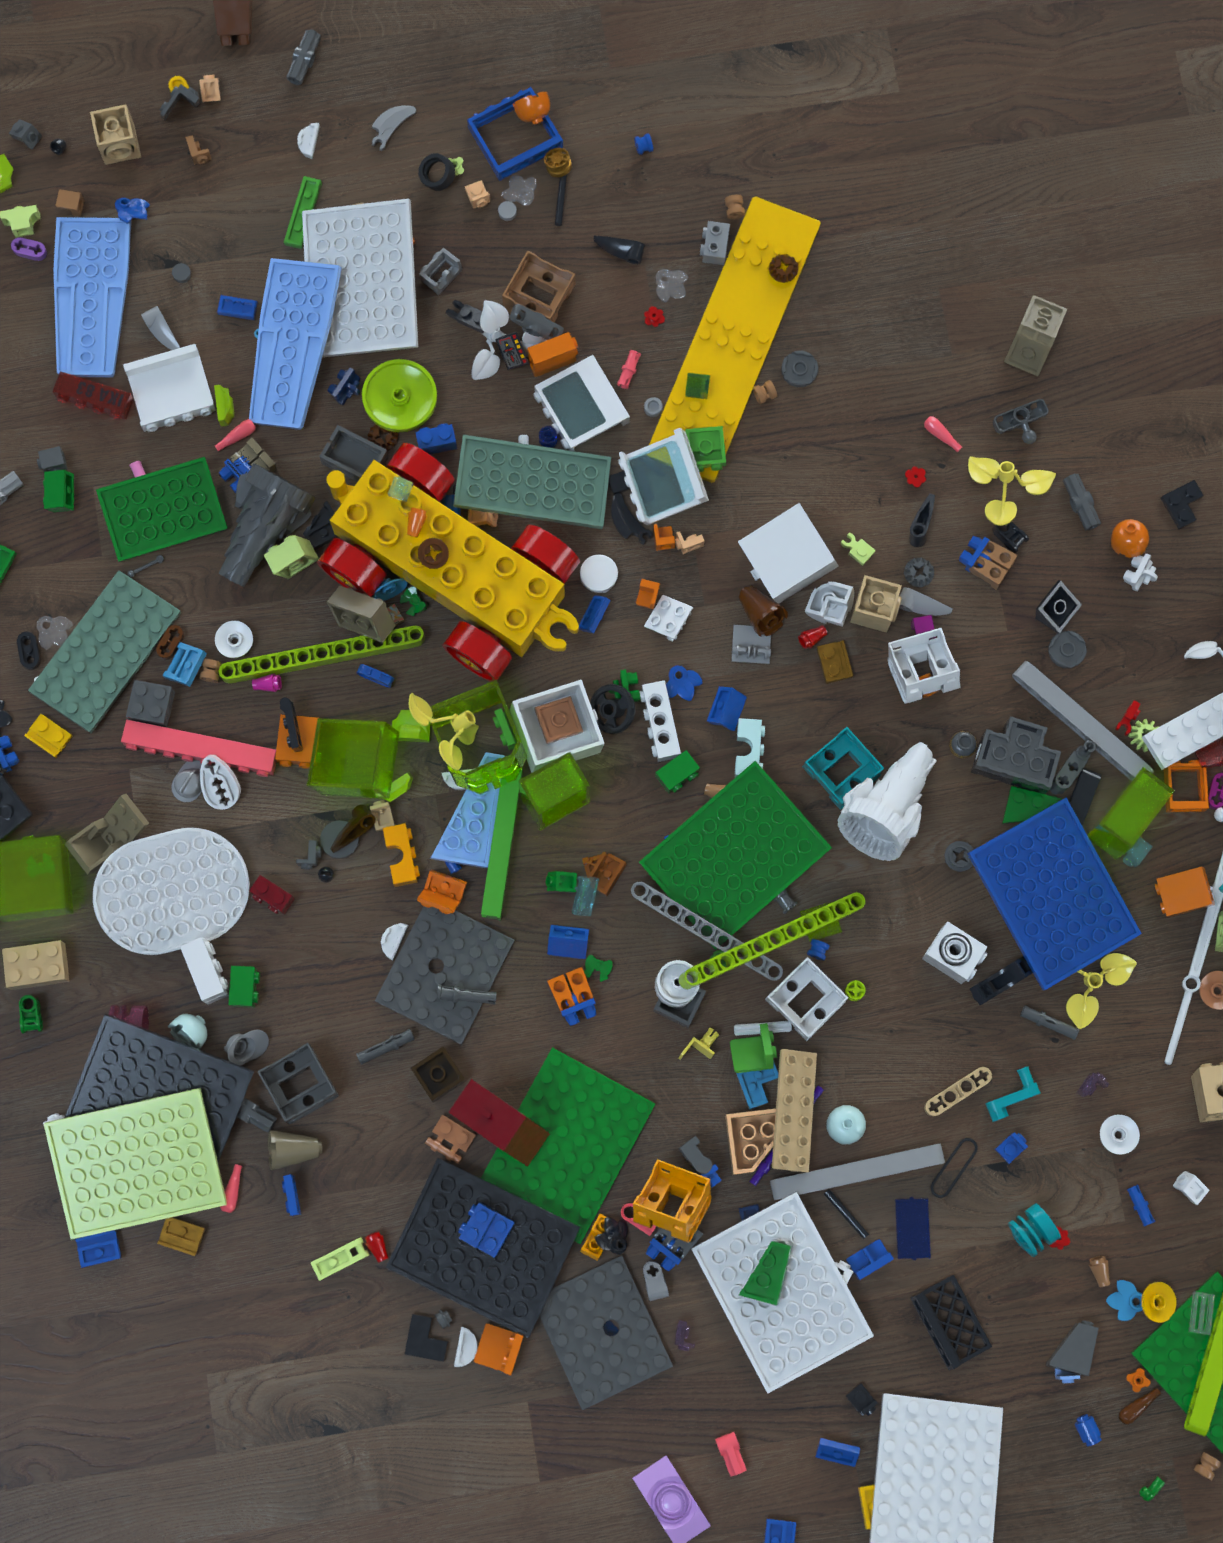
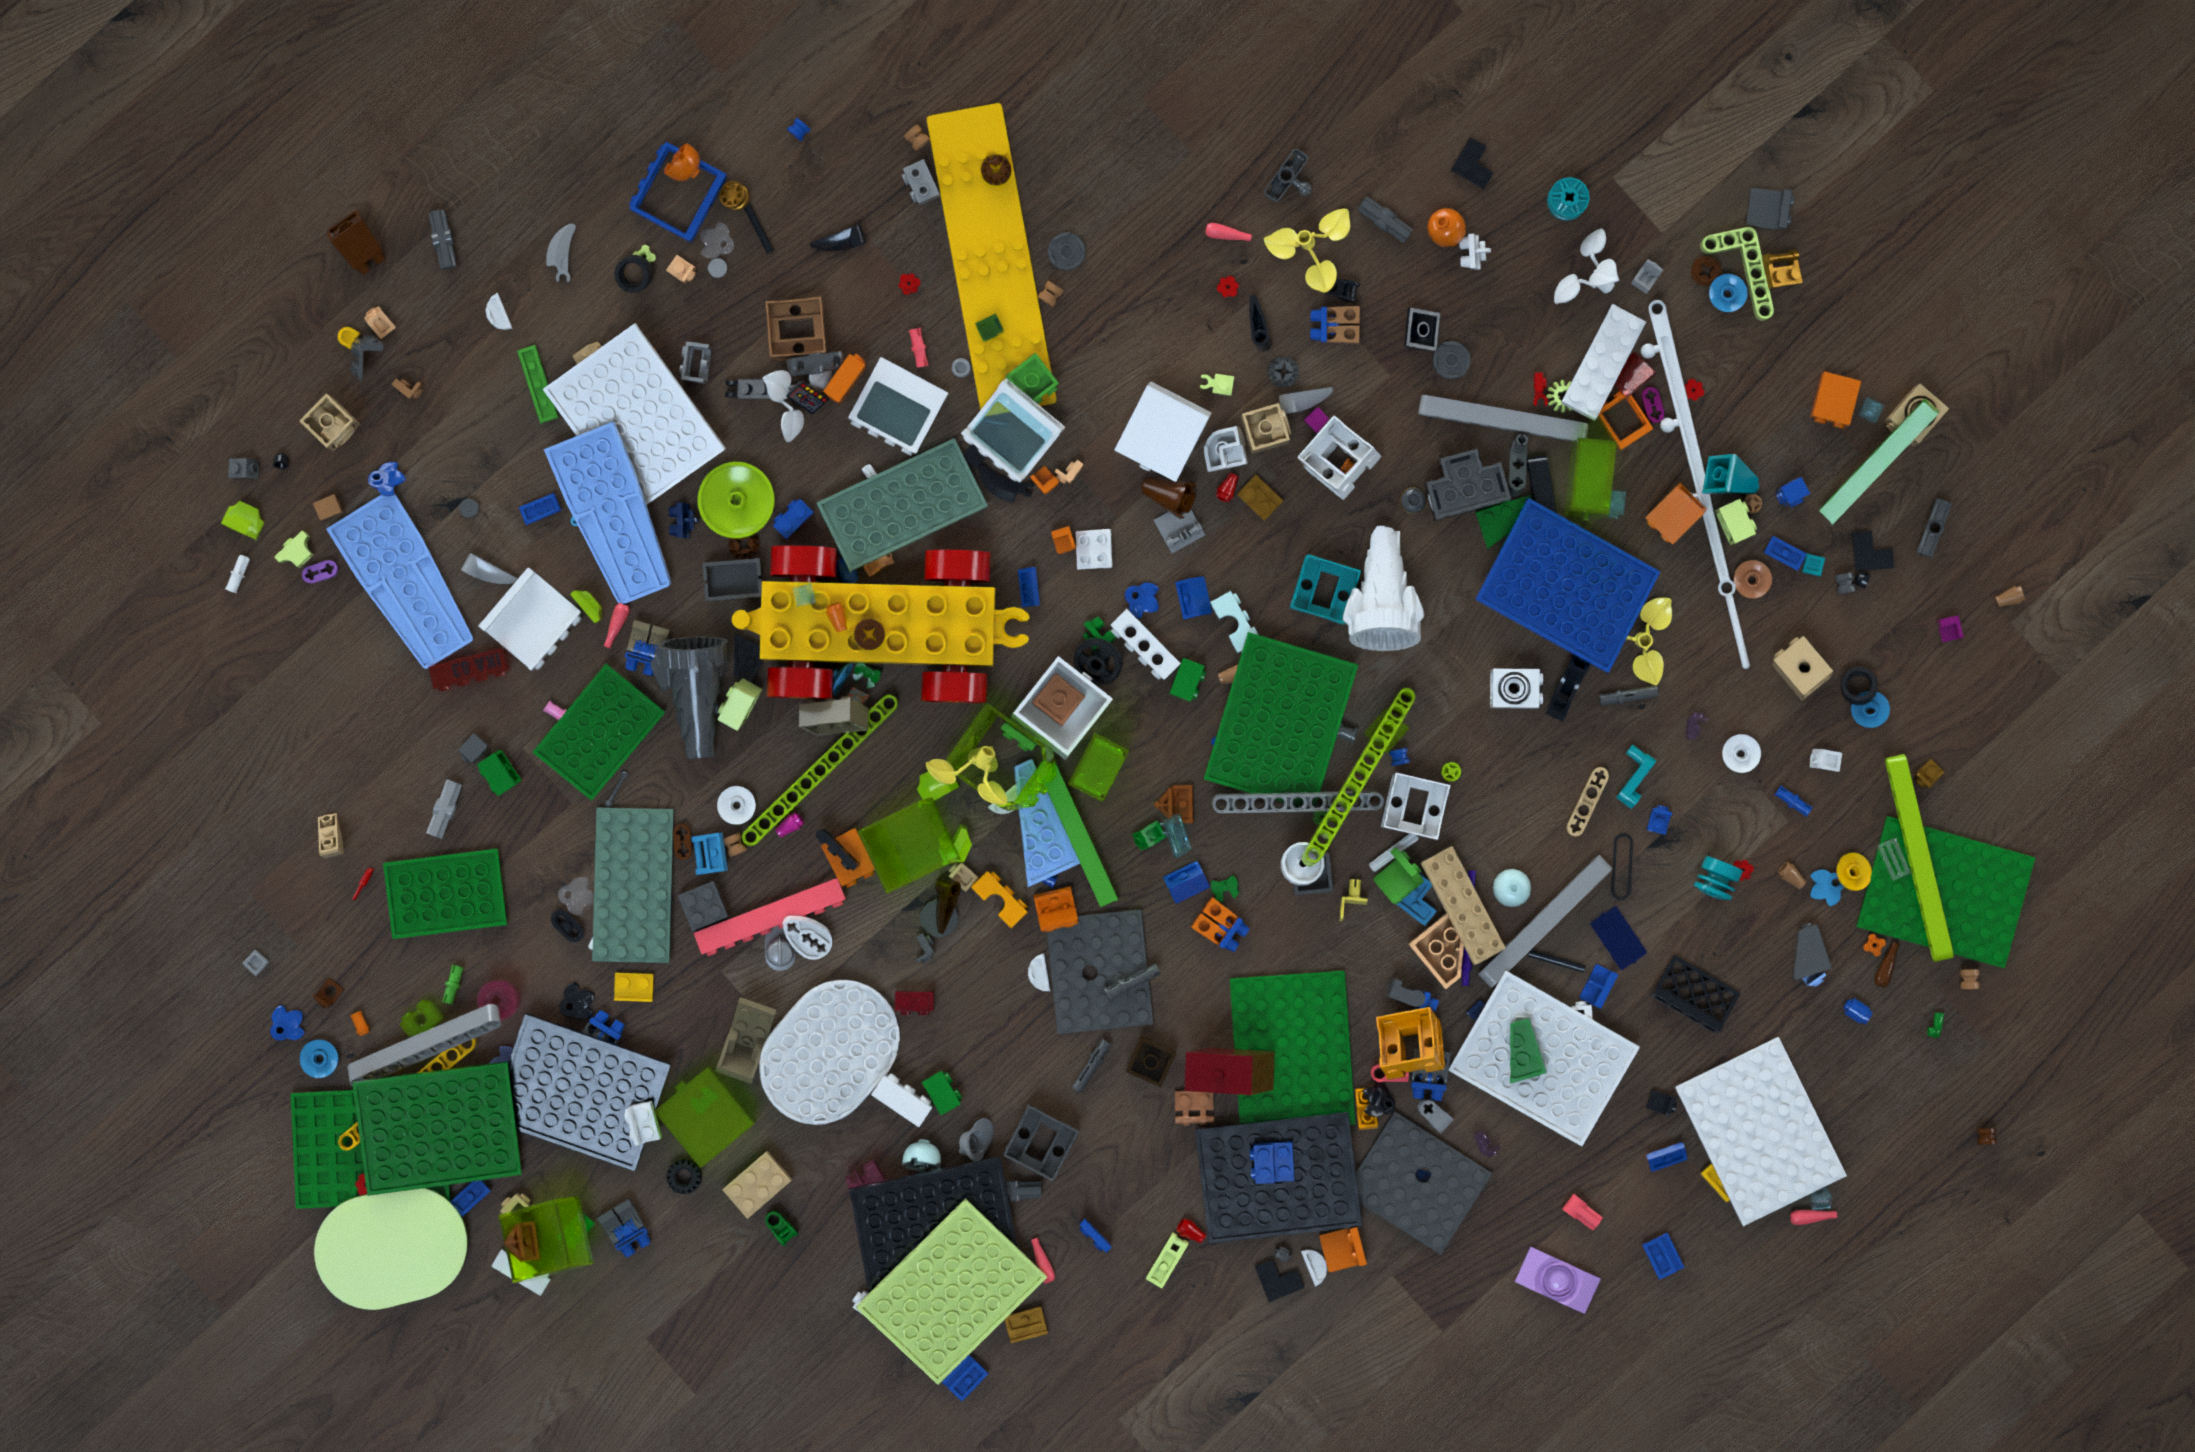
camera: 30 degrees left, 10 degrees up
(290, 1149) = (1069, 1198): dark tan cone -> none
(326, 878) = (944, 951): black hinge -> none
(375, 675) = (877, 759): blue piece -> none
(545, 439) = (890, 457): clear blue wheel -> none
(598, 573) = (1009, 548): white tile -> none
(673, 286) = (908, 245): clear plate -> none
(957, 847) = (1462, 607): dark grey gear -> none
(1035, 335) = (1254, 90): dark tan bracket -> none

